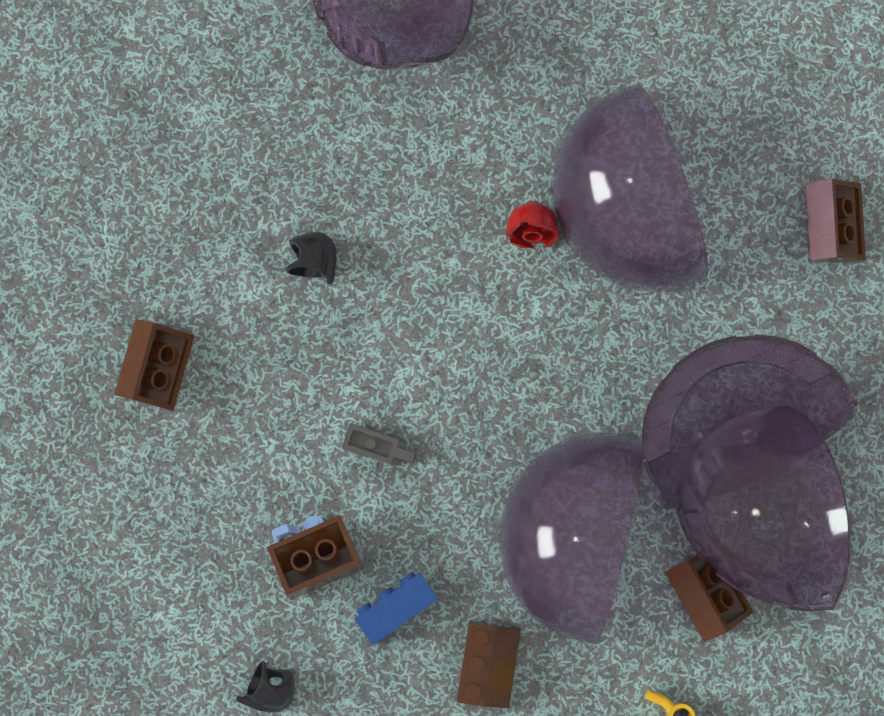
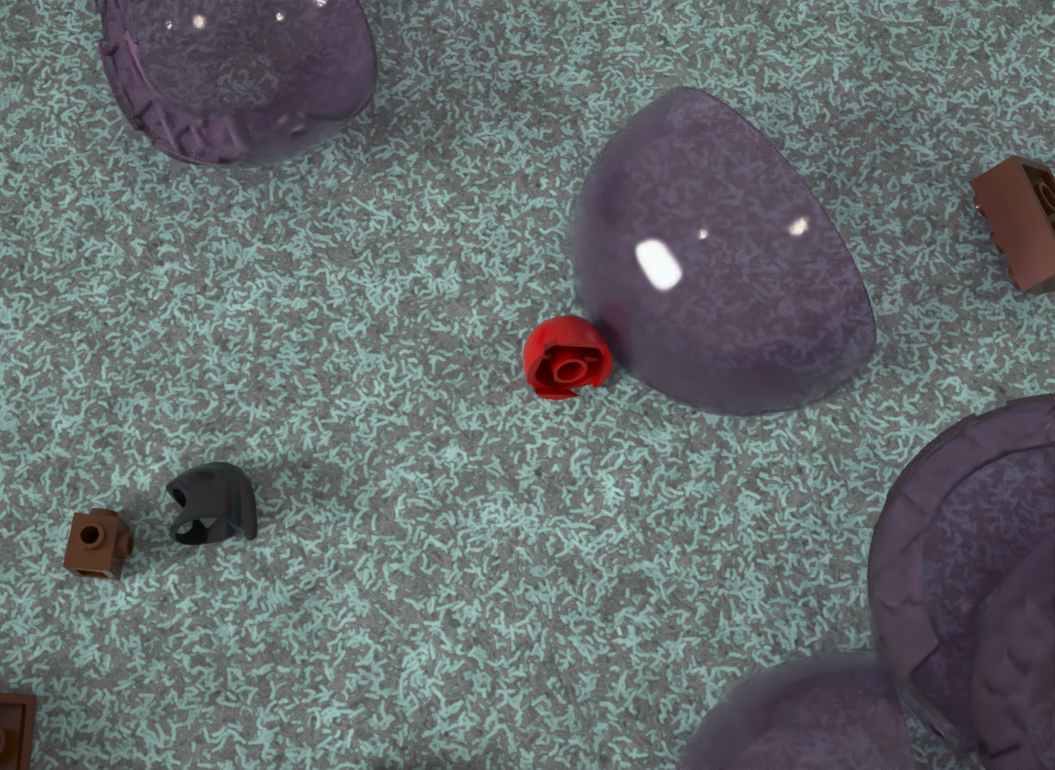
camera: 15 degrees left, 15 degrees down
(245, 262) = (98, 545): none -> reddish brown brick

